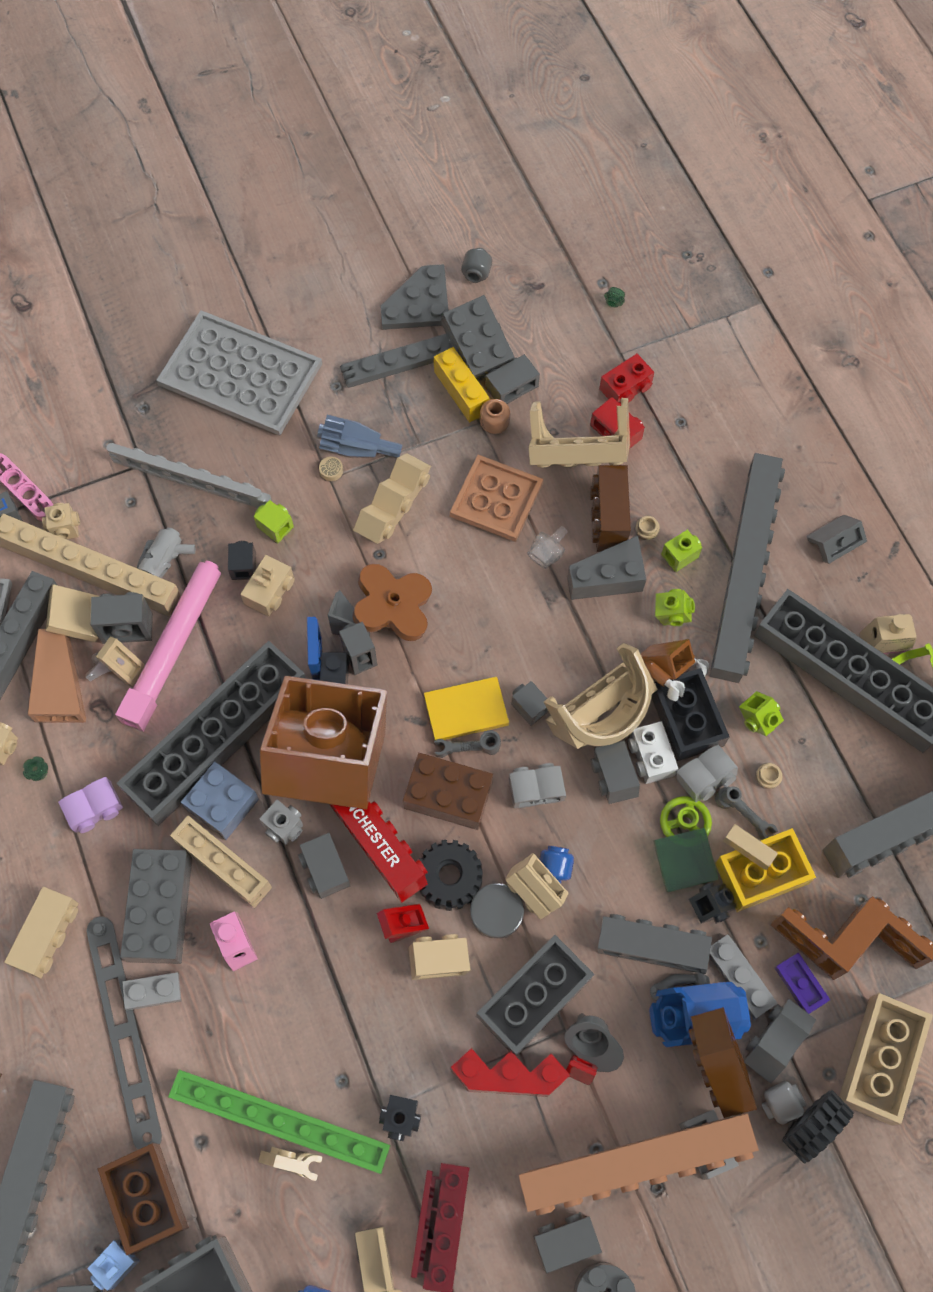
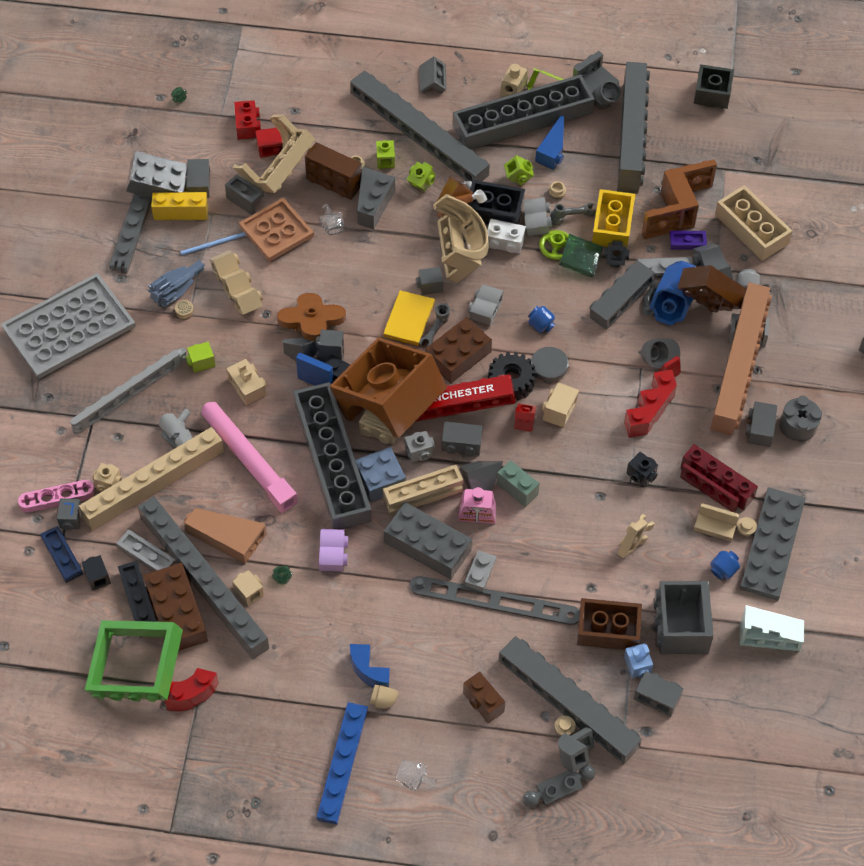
camera: 60 degrees left, 10 degrees down
(42, 932) = (402, 614): tan brick -> none
(70, 613) = (186, 498): tan tile -> none
(119, 660) = (240, 488): tan piece -> none
(121, 617) = (212, 470): dark grey brick -> none
(241, 560) = (217, 387): black brick -> none
(280, 1121) = (603, 537): bright green plate -> none
(283, 916) = (481, 474): none -> dark grey slope
(294, 968) = (518, 483): none -> sand green brick
(418, 301) = (94, 200): dark grey plate -> none
(439, 446) = (217, 242): none -> light blue axle
(476, 265) = (95, 153): dark grey head -> none
(495, 416) = (218, 199): nougat head -> none
(519, 435) = (243, 193): none -> dark grey panel
(534, 995) = (614, 366): dark grey brick -> none
(536, 886) = (550, 332): tan brick -> none
(615, 772) = (505, 259): dark grey brick -> none
(750, 847) = (598, 212): tan piece -> none
(818, 1126) = (771, 268): black tyre -> none
(826, 734) = (551, 148): none -> blue slope

